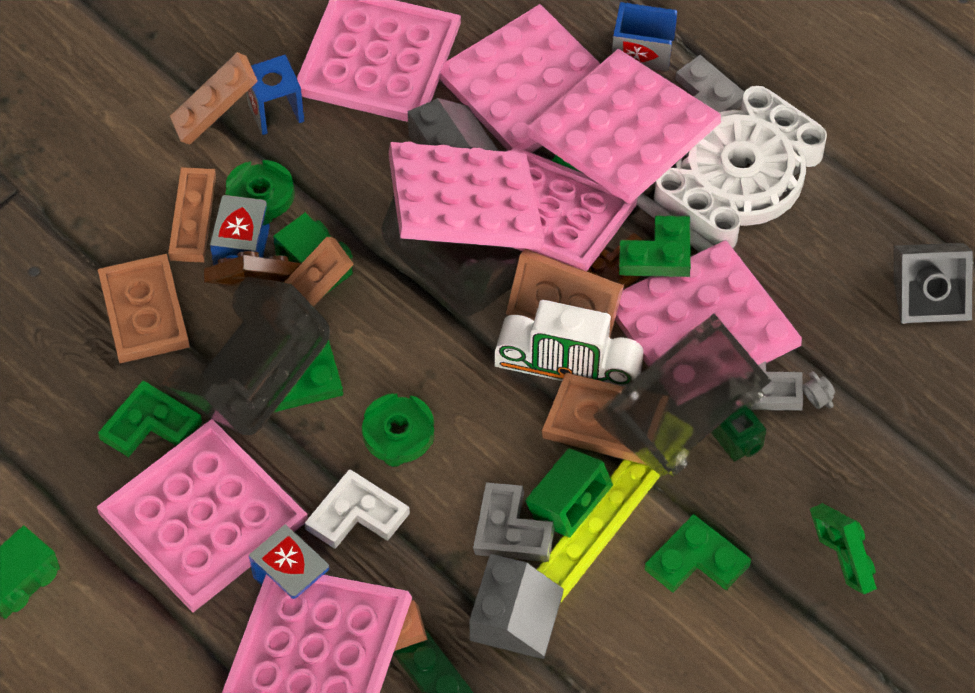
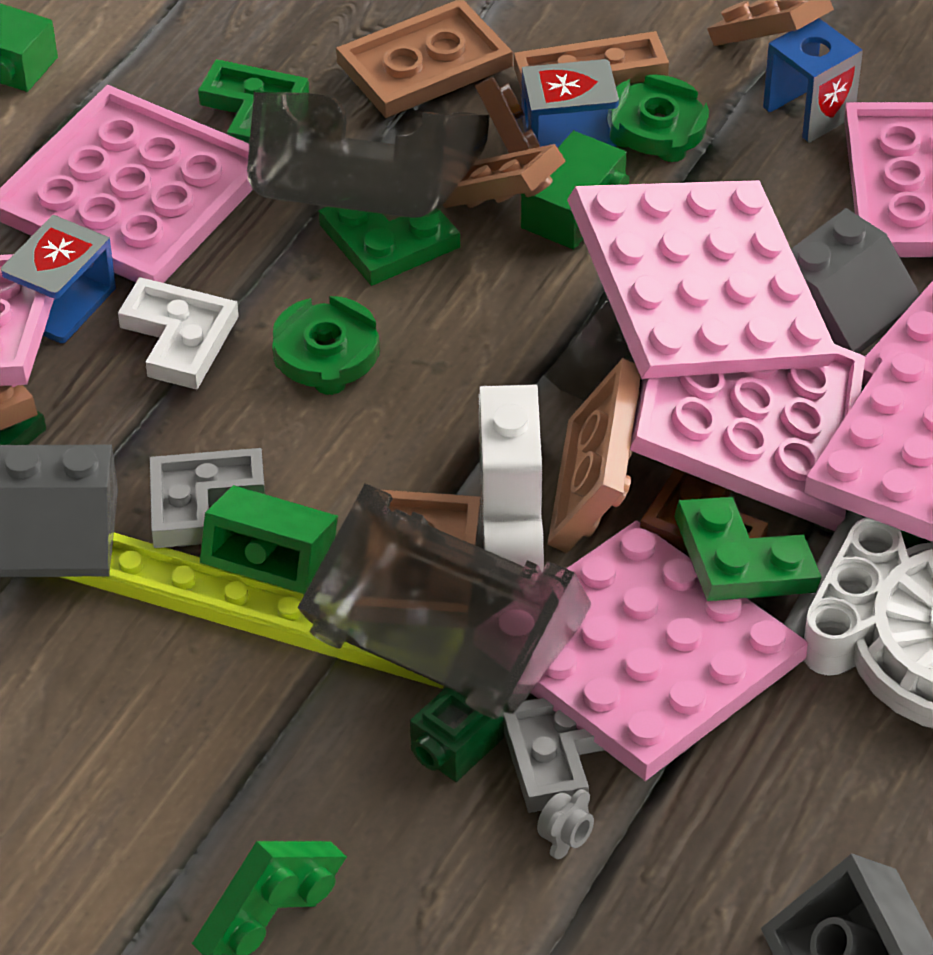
camera: 75 degrees right, 10 degrees down
(696, 547) = (231, 728): green plate -> none

